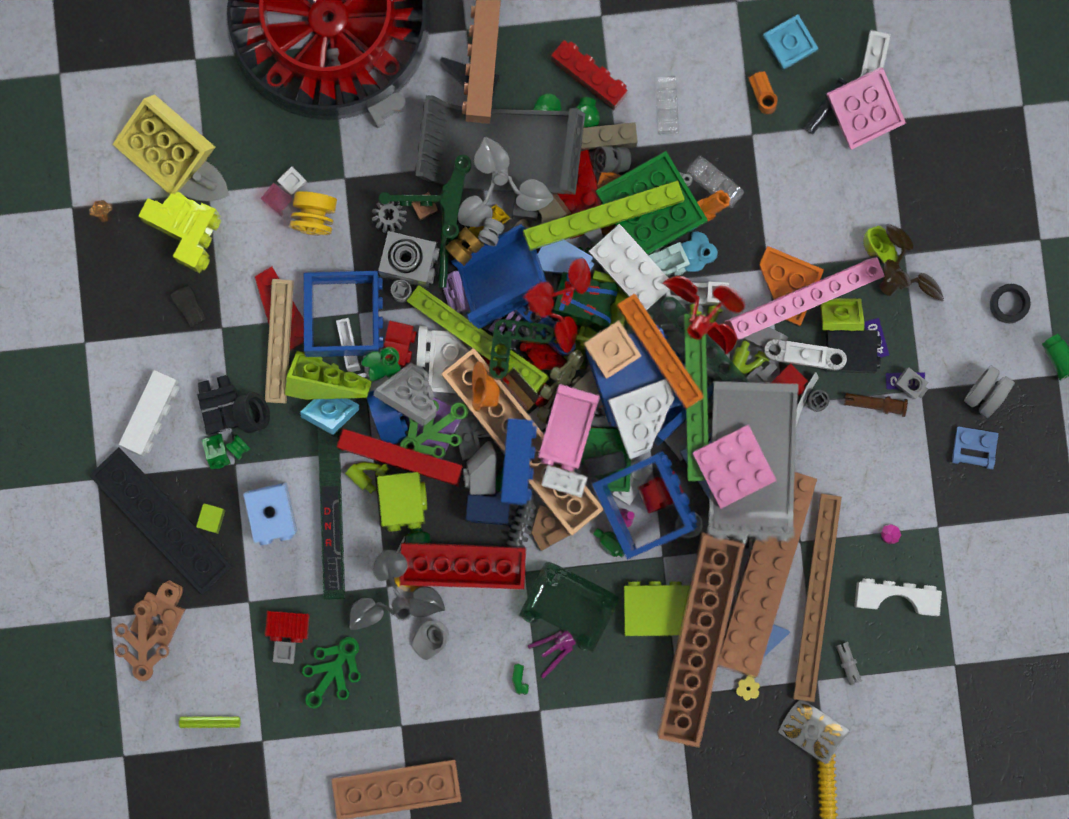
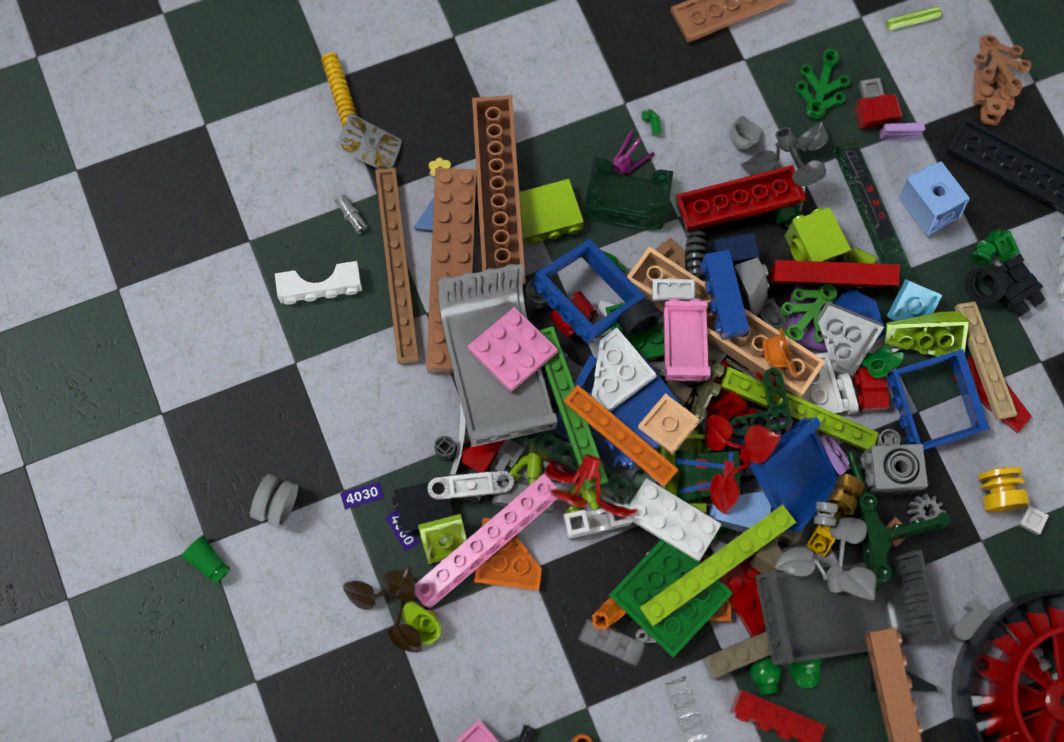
camera: 160 degrees right, 10 degrees down
(210, 518) = (982, 182): lime panel -> none
(270, 598) = (902, 130): none -> lavender tile
(276, 199) = (1043, 495): clear pink panel -> none
(346, 339) = (919, 378): white piece -> none
(612, 159) = (725, 632): dark grey wheel -> none
(628, 516) = (601, 288): dark pink rock -> none
(671, 260) = (634, 544): light aqua cylinder -> none
(695, 252) = (610, 565): medium azure plate -> none
(886, 405) = (375, 463): reddish brown pin -> none
(891, 534) = (340, 341): dark pink rock -> none
(902, 384) = (361, 496): light grey brick -> none
(977, 441) = (276, 454): medium blue plate -> none
(998, 314) = (260, 590): black tyre -> none

